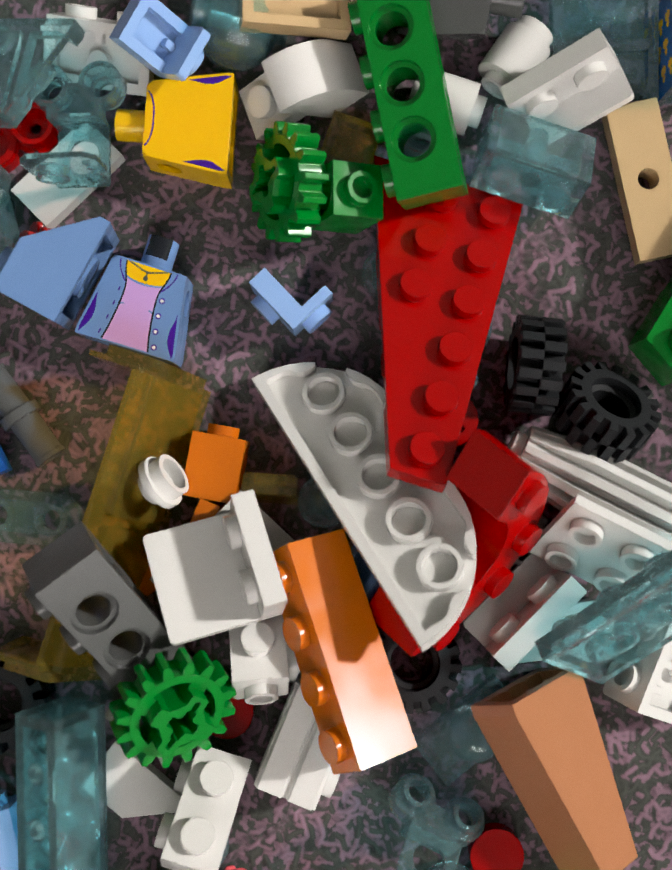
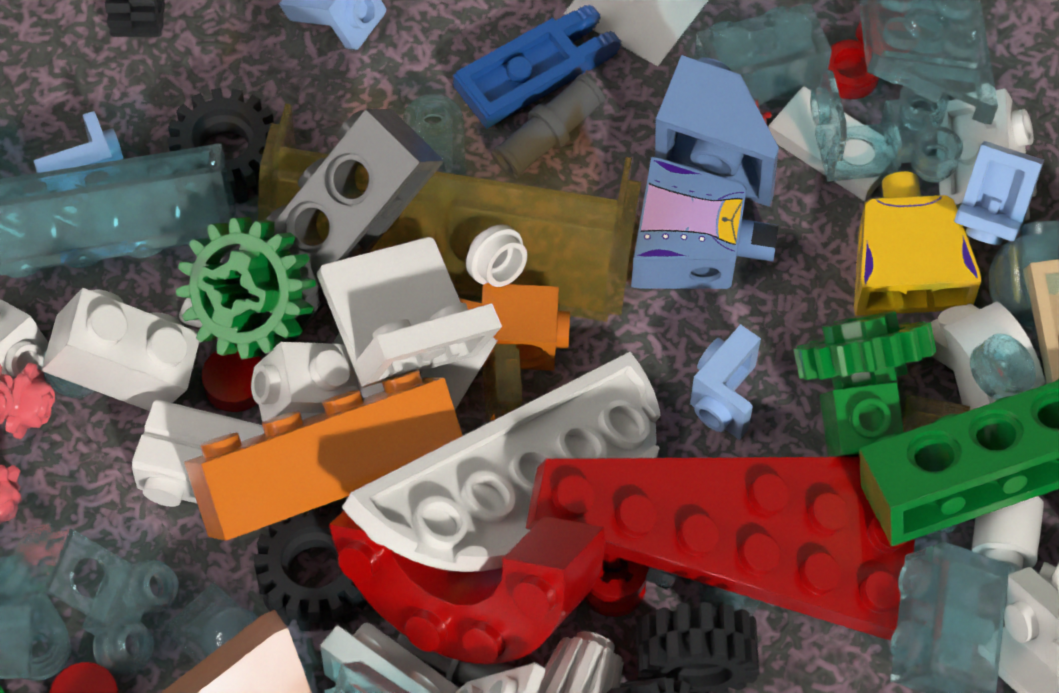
camera: 80 degrees right, 25 degrees down
(41, 142) = (869, 92): red plate -> none
(135, 788) = (145, 281): white tile -> none
(335, 67) = (1002, 367): none -> clear light blue tile

